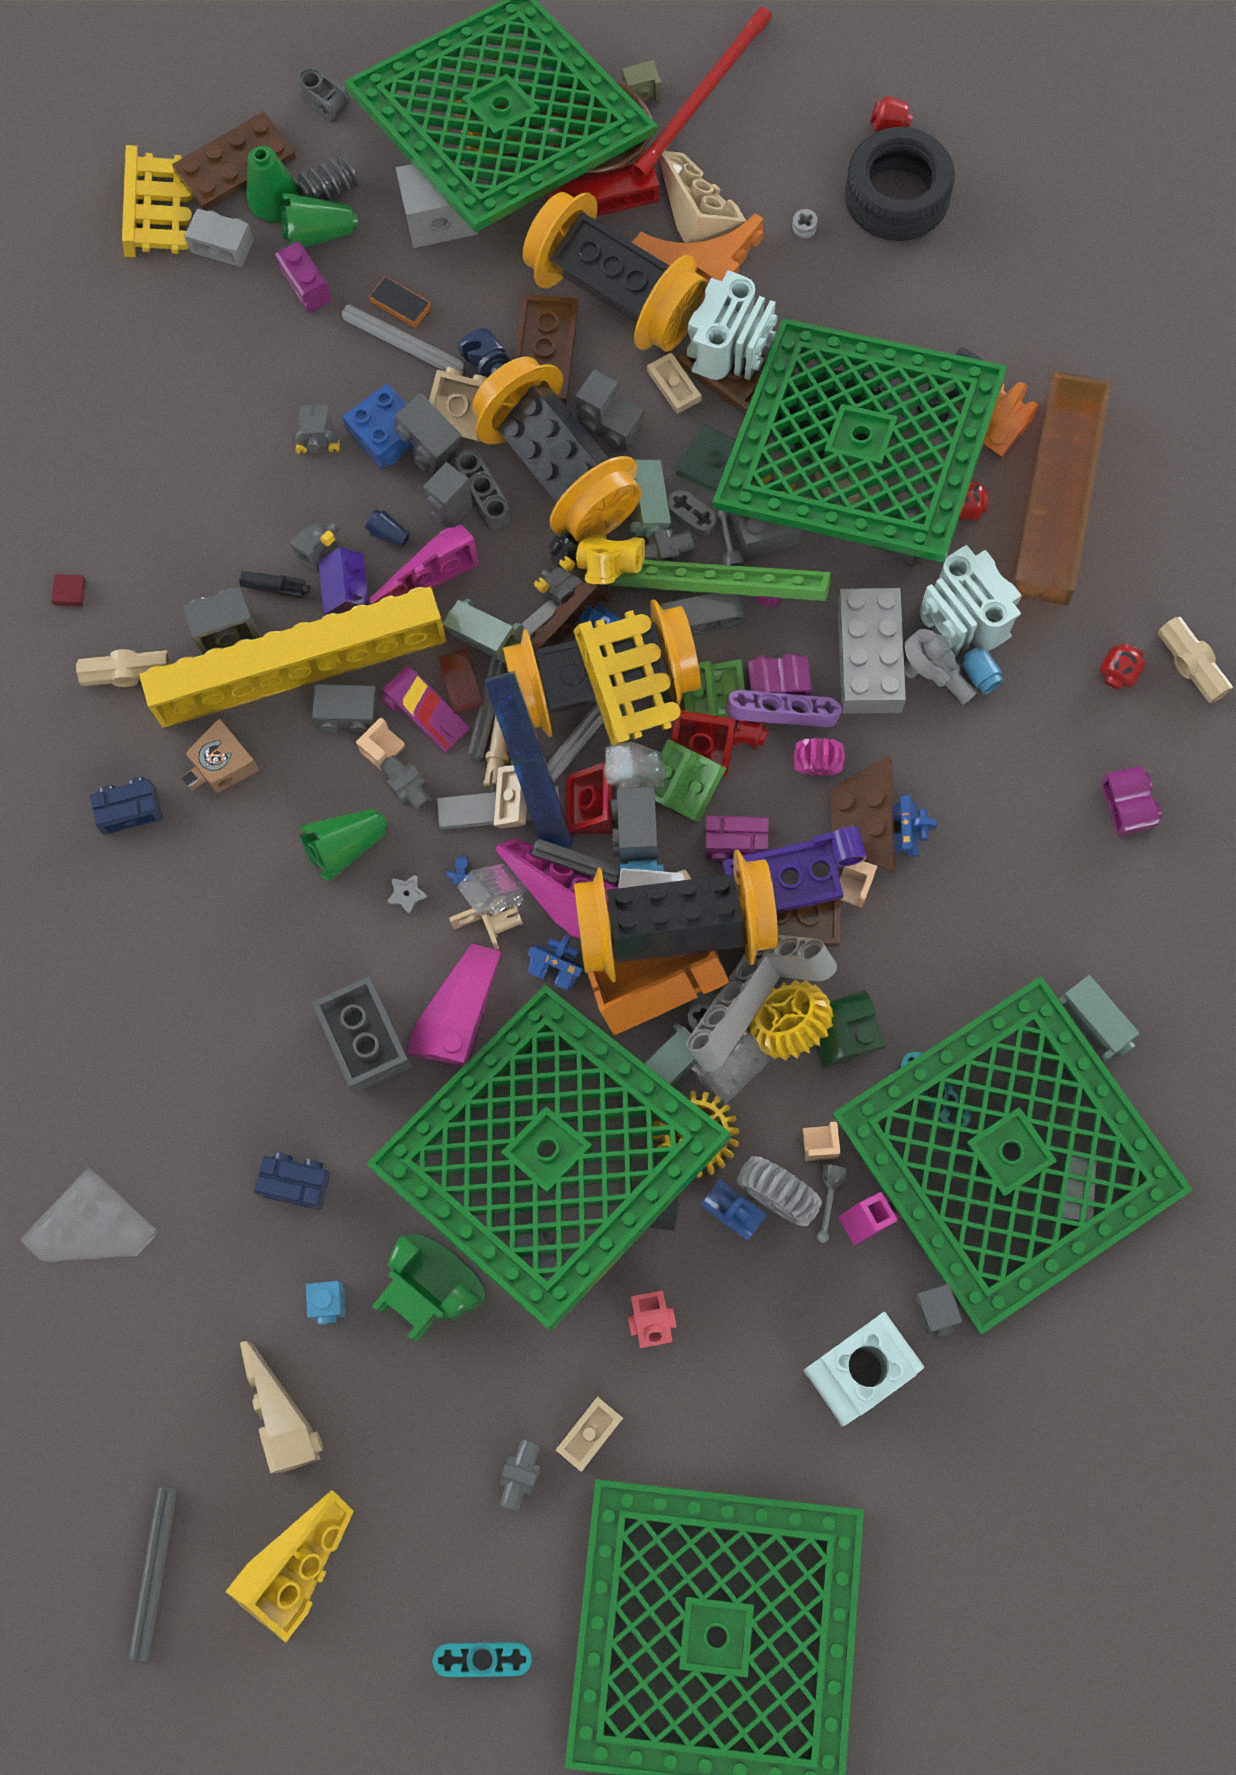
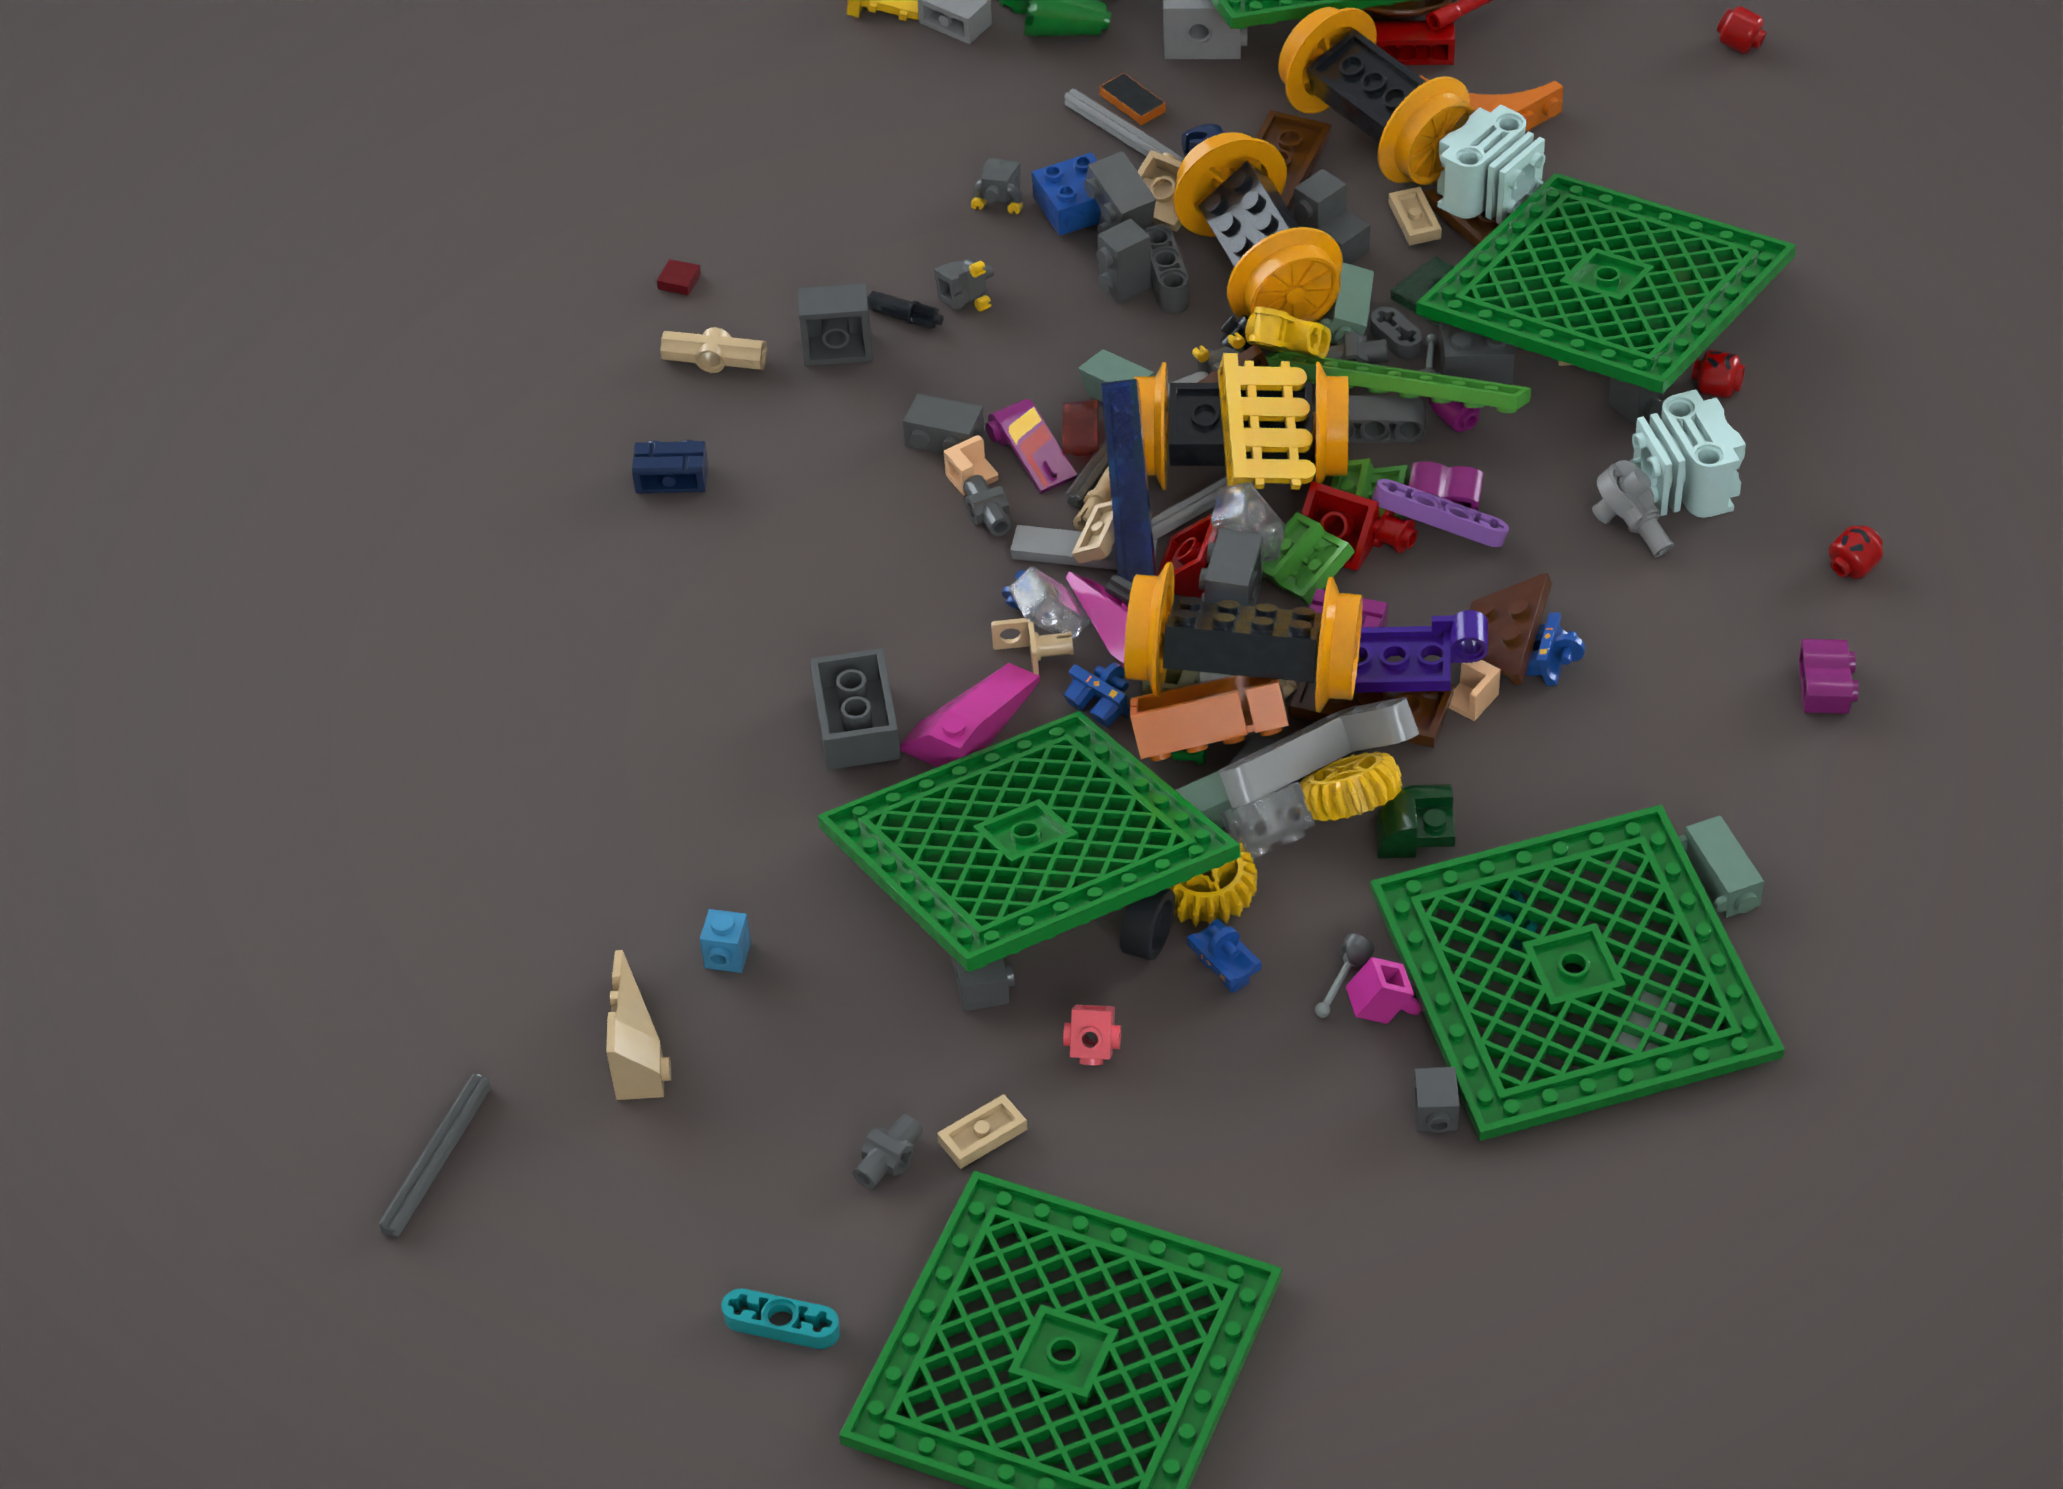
camera: 15 degrees right, 25 degrees down
(89, 1224) = (486, 826): clear plate -> none
(218, 760) = (786, 446): medium nougat torso -> none
(284, 1574) = (584, 1186): yellow wedge -> none
(292, 1181) = (727, 829): dark blue brick -> none
(293, 657) = (896, 363): yellow brick -> none
(303, 276) = (1033, 56): magenta brick -> none
(341, 840) = (895, 535): green cone -> none
(343, 581) = (981, 317): dark purple brick -> none
(386, 528) = (1045, 282): dark blue cone -> none
(407, 902) = (954, 611): light grey plate -> none
(428, 1284) = (841, 952): green piece -> none
(439, 561) = (1087, 322): dark pink wedge -> none
(696, 204) = (1491, 64): tan wedge -> none
(779, 1191) = (1281, 933): light grey gear -> none
(804, 231) = (1612, 107): light grey bush -> none
(819, 757) = (1466, 562): dark pink gear -> none
(821, 1142) = (1349, 917): light nougat panel -> none
(838, 1388) = (1325, 1121): light aqua piece -> none
(871, 651) = (1560, 484): light grey brick -> none
(906, 150) = (1727, 113): black tyre -> none
(982, 670) = (1687, 526): dark azure brick -> none
(1009, 419) = (1785, 309): orange plate -> none
(1061, 488) = (1830, 378): clear orange piece -> none
(1194, 660) = (1945, 563): tan piece -> none

